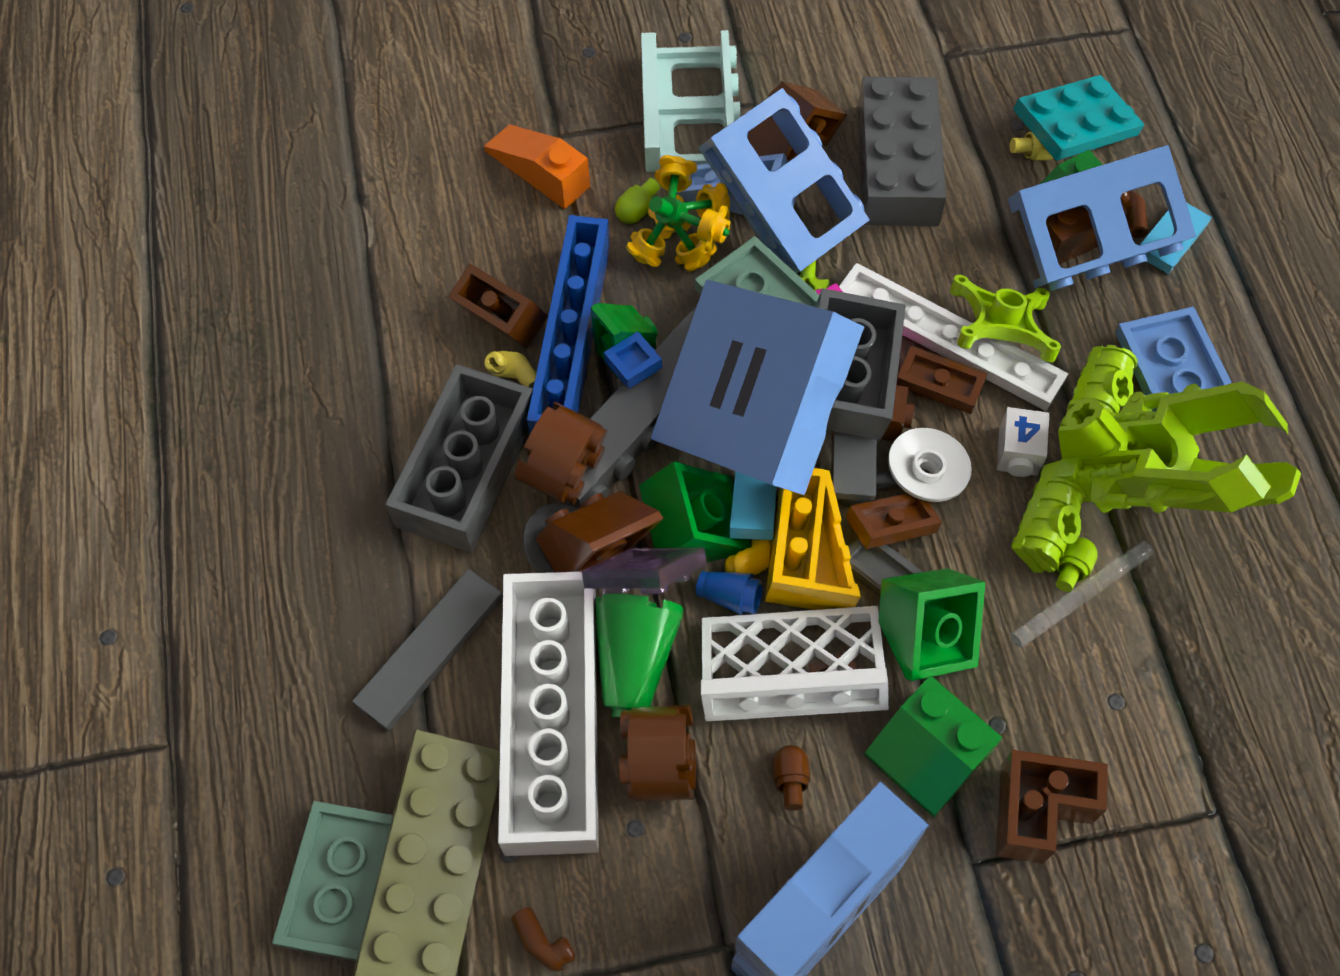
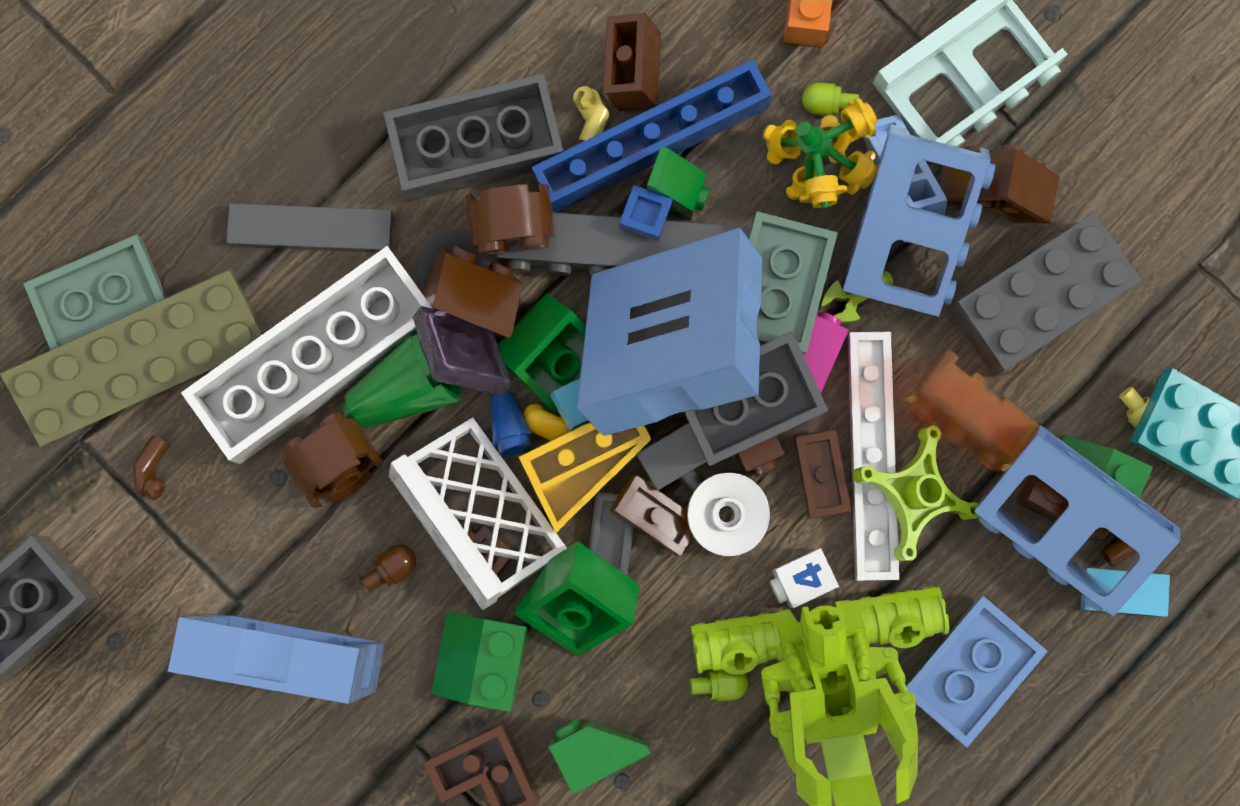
camera: 55 degrees right, 20 degrees up
(959, 244) = (971, 413): none -> clear orange wedge
(1081, 594) = (696, 703): clear bar -> none
(1084, 693) = (594, 751): none -> green slope

